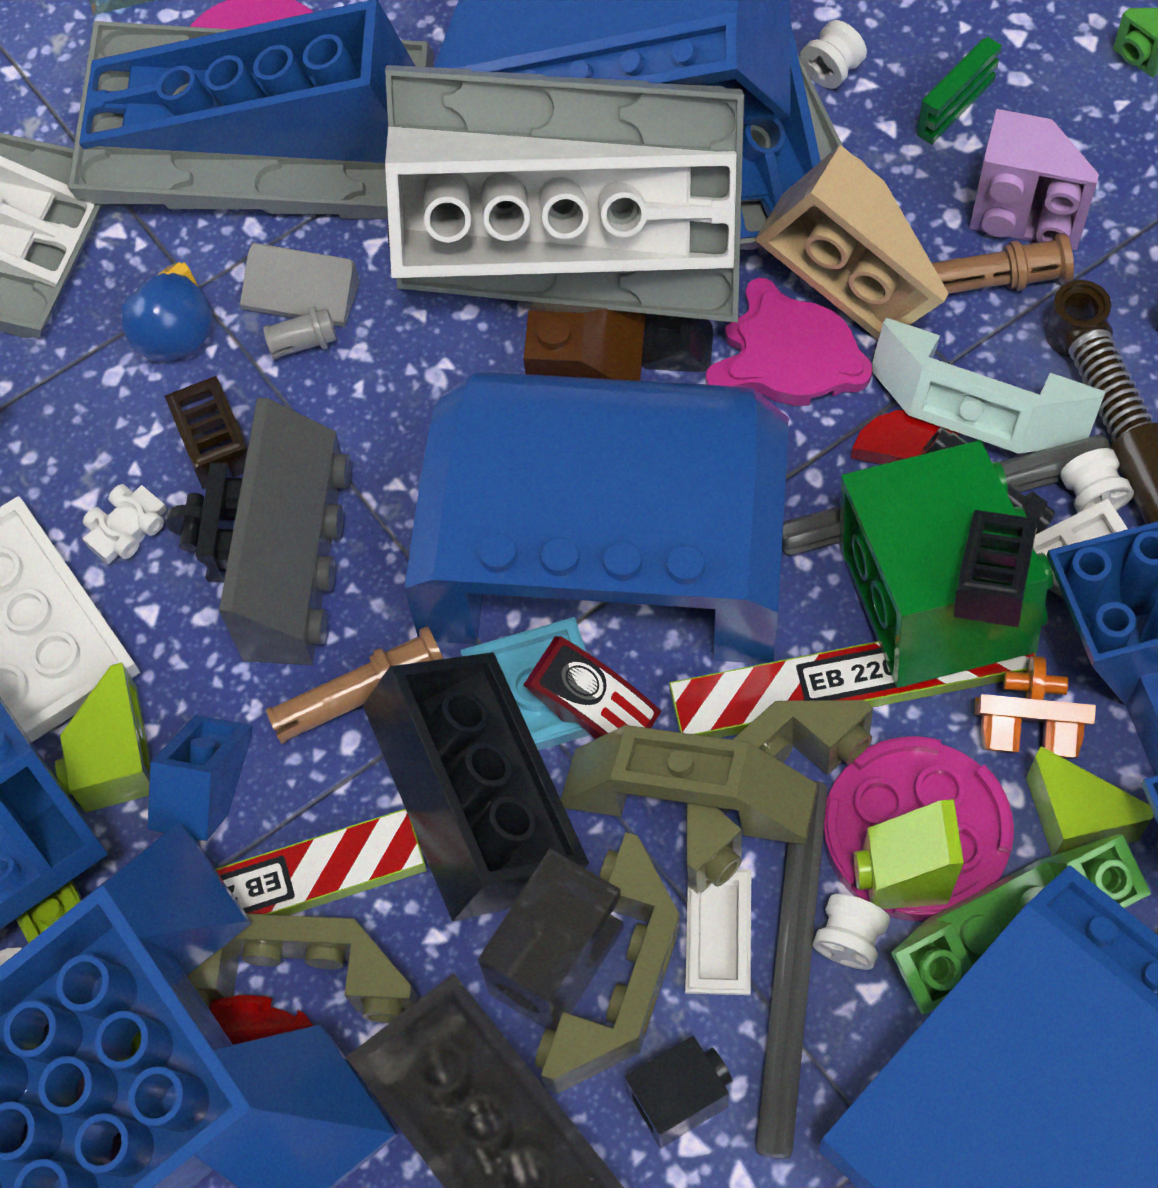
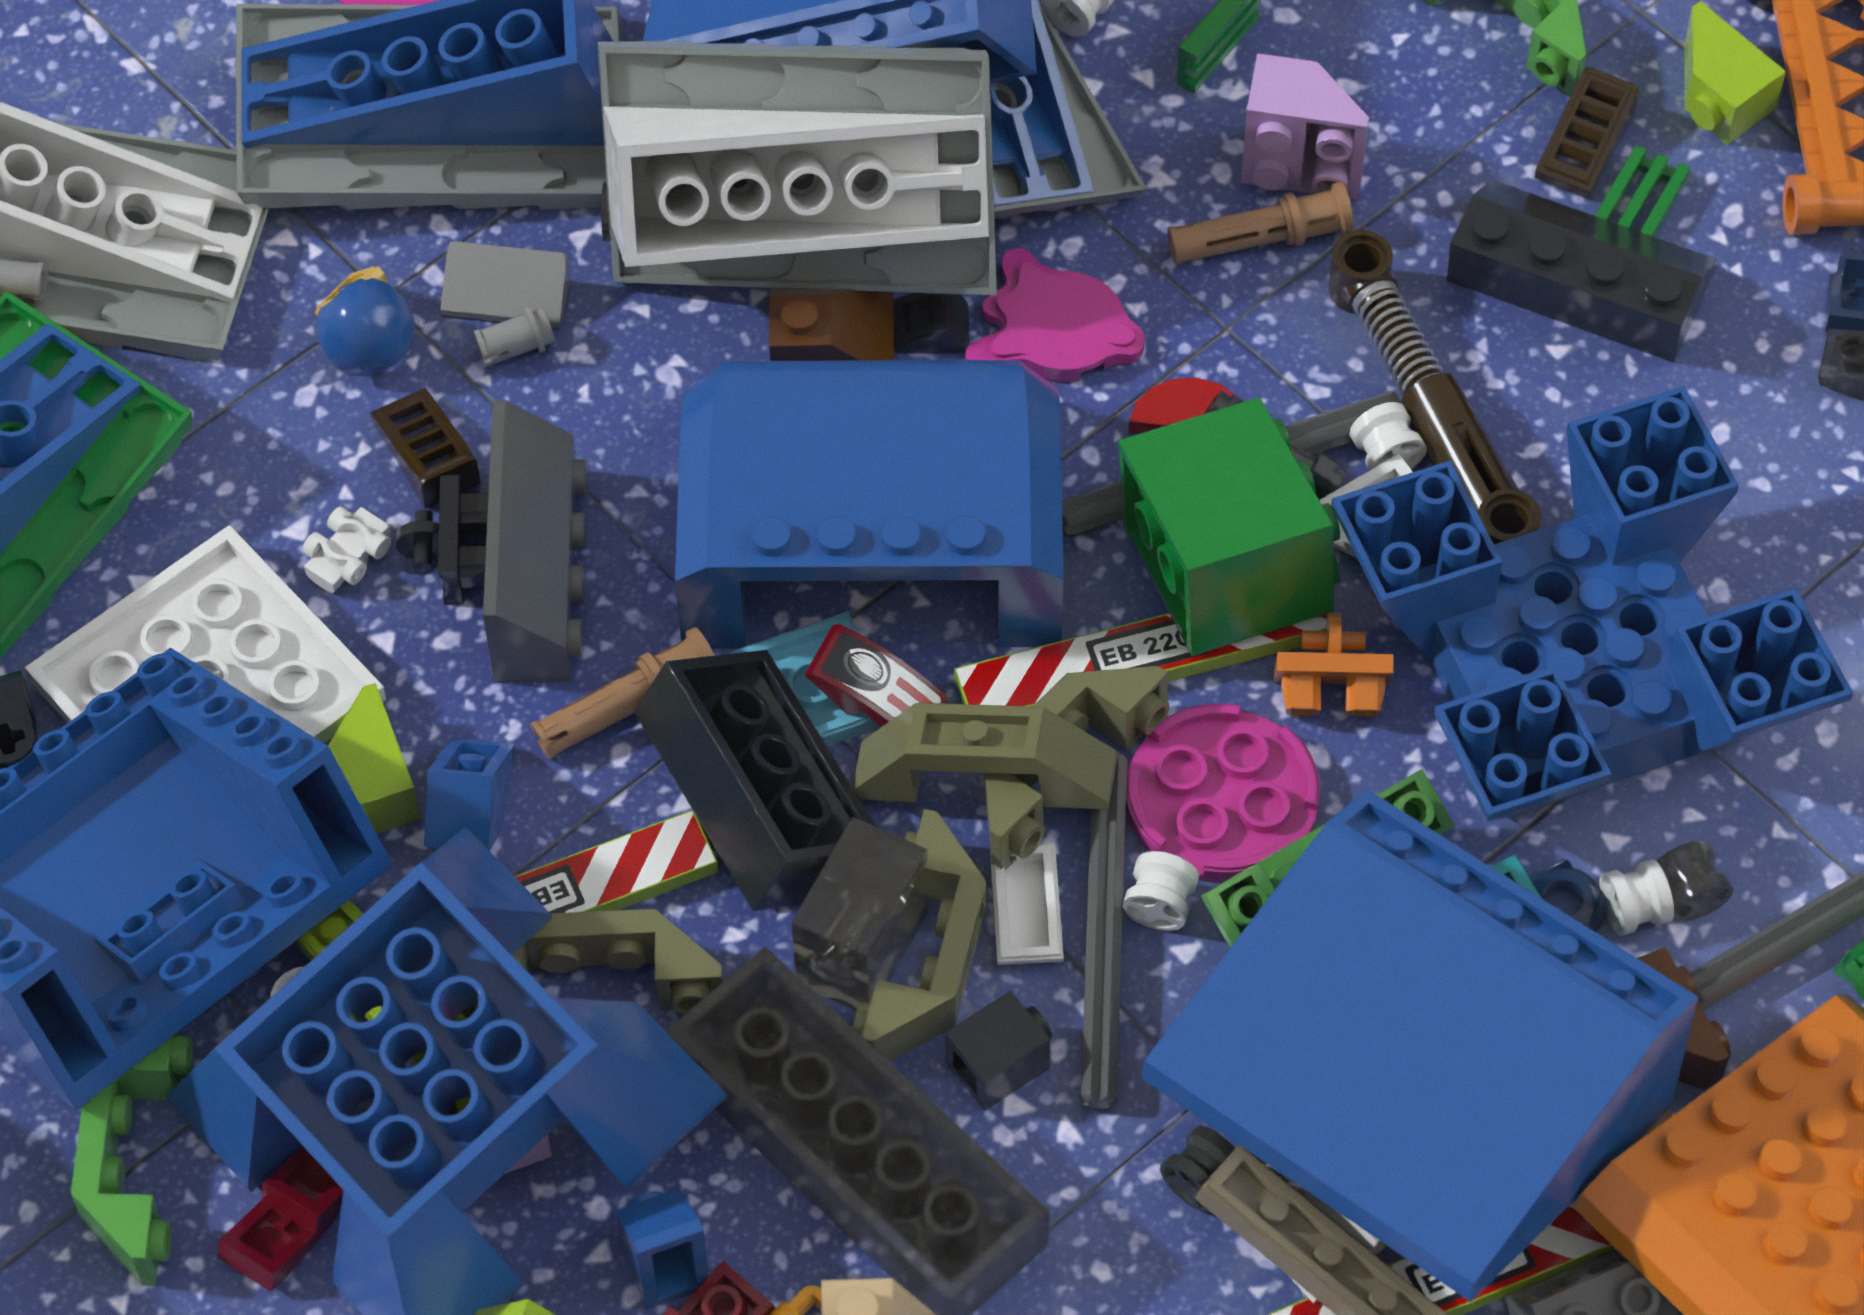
camera: 10 degrees left, 5 degrees down
(853, 244) = (1114, 207): tan slope -> none
(911, 858) = (1215, 809): lime slope -> none
(977, 403) = (1259, 365): light aqua slope -> none
(988, 600) = (1272, 545): black slope -> none
(1080, 806) = (1383, 751): lime slope -> none

